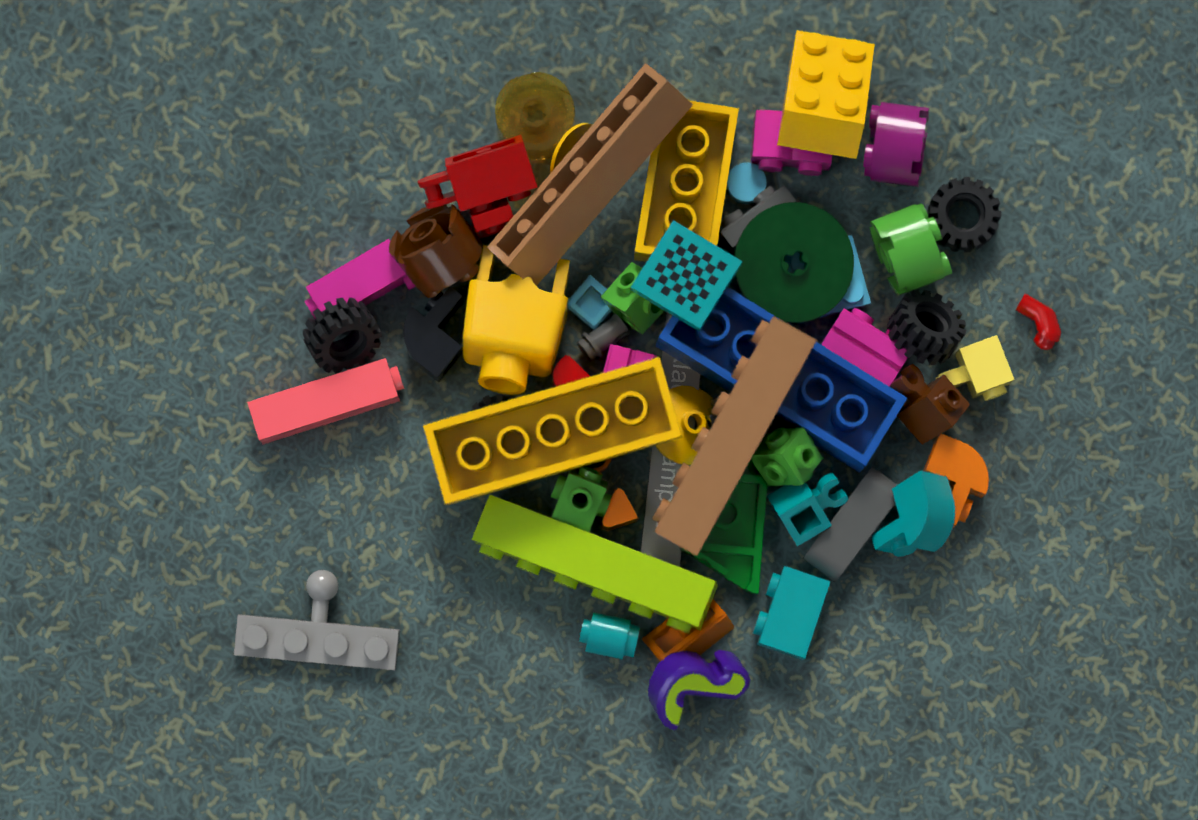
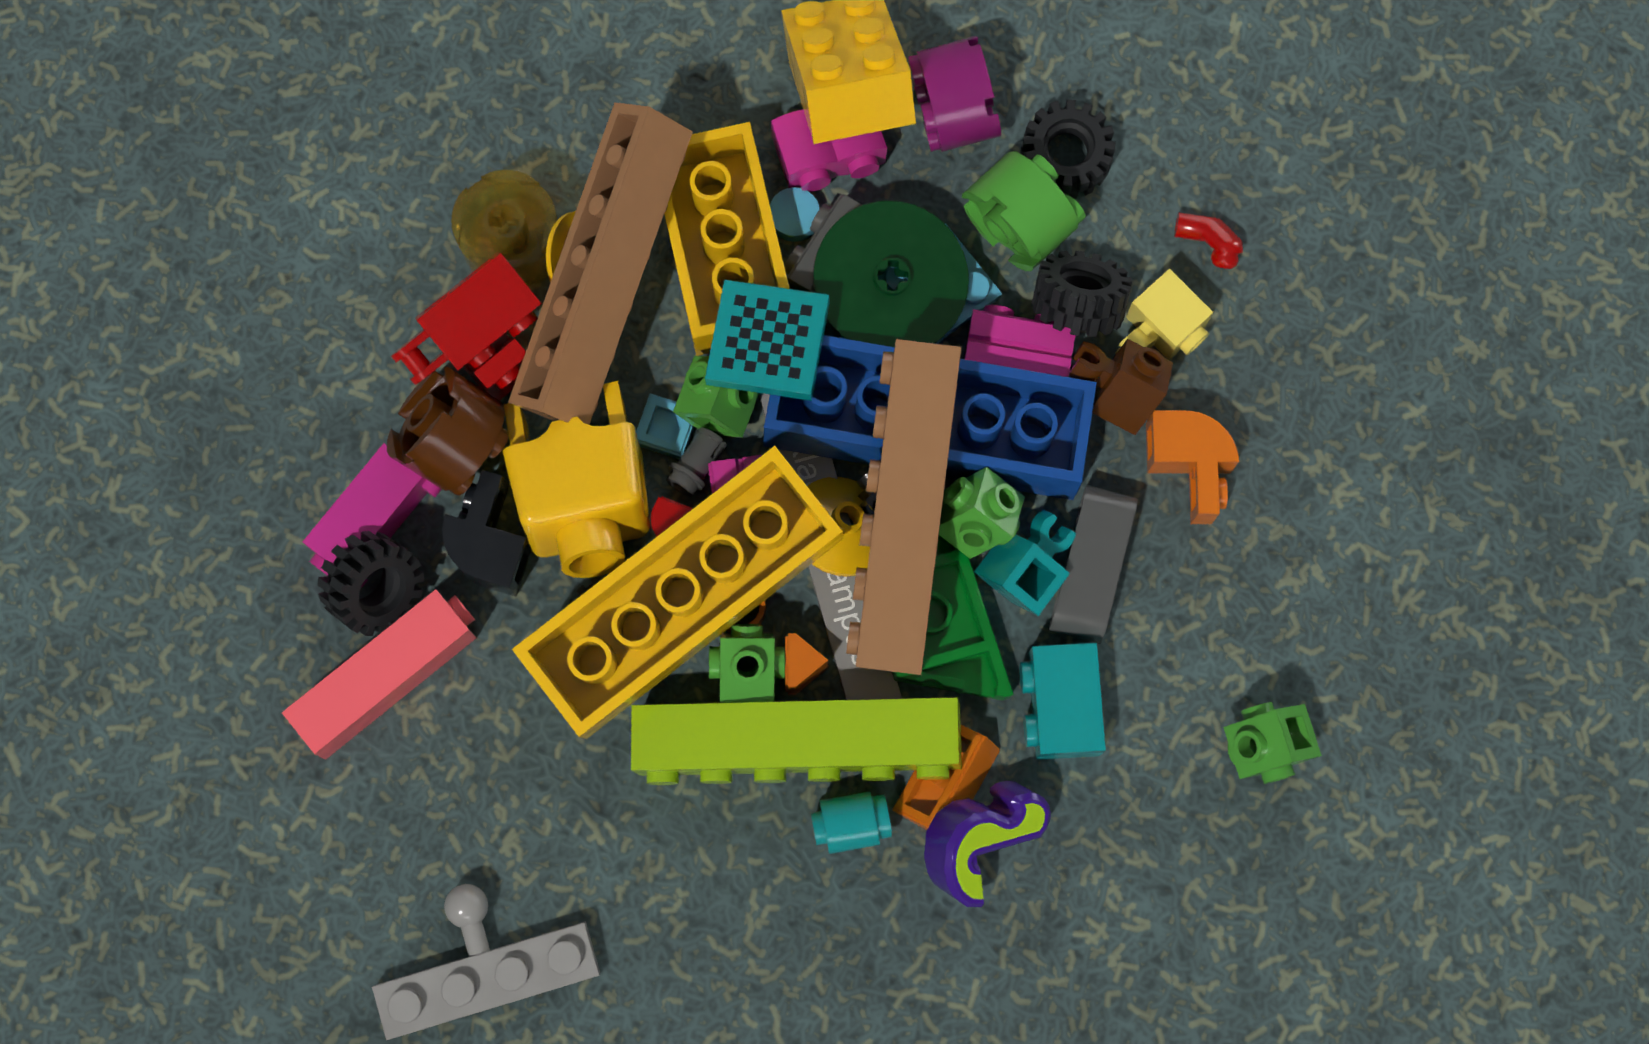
camera: 20 degrees left, 5 degrees down
(924, 518) = (1179, 520): teal brick -> none
(924, 699) = (1271, 741): none -> bright green brick

